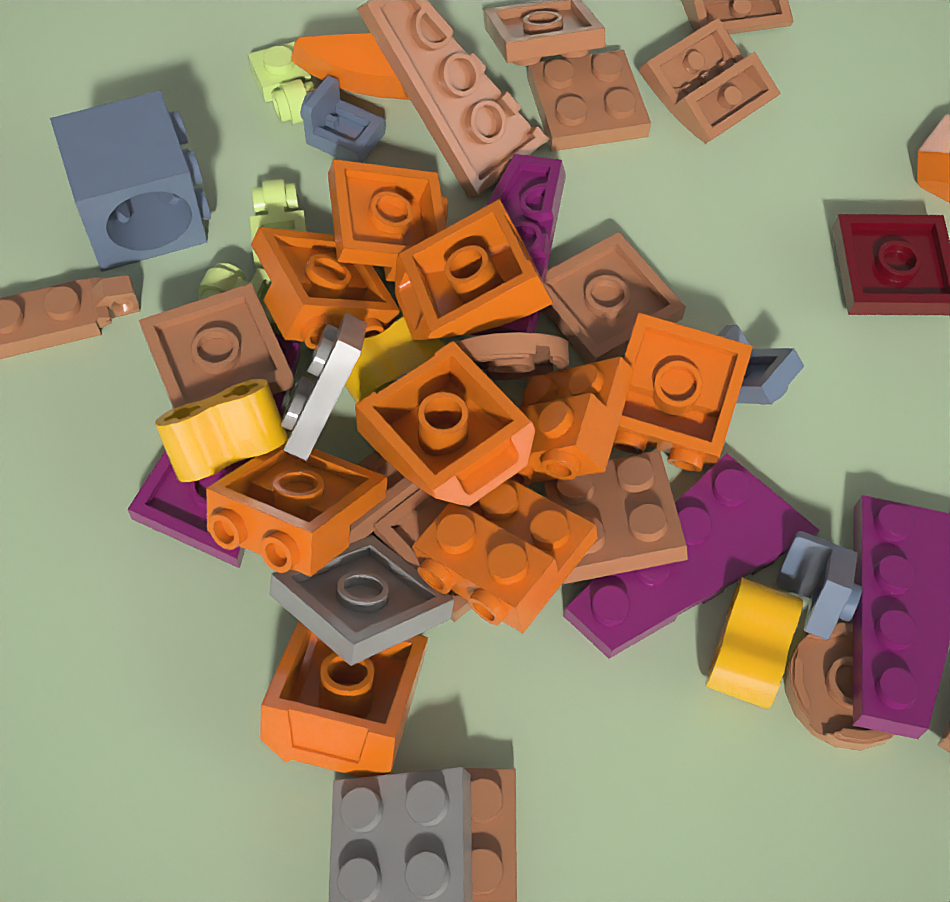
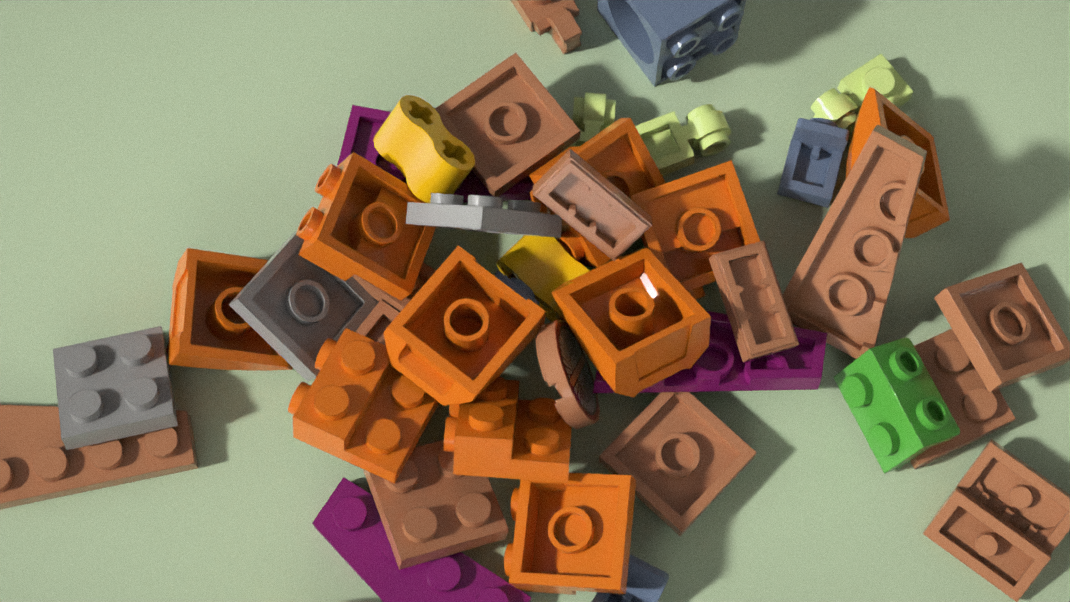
camera: 80 degrees right, 10 degrees up
(346, 274) = (592, 205): none -> nougat plate
(476, 184) = (753, 301): none -> nougat plate
(597, 120) = (896, 403): none -> bright green bracket

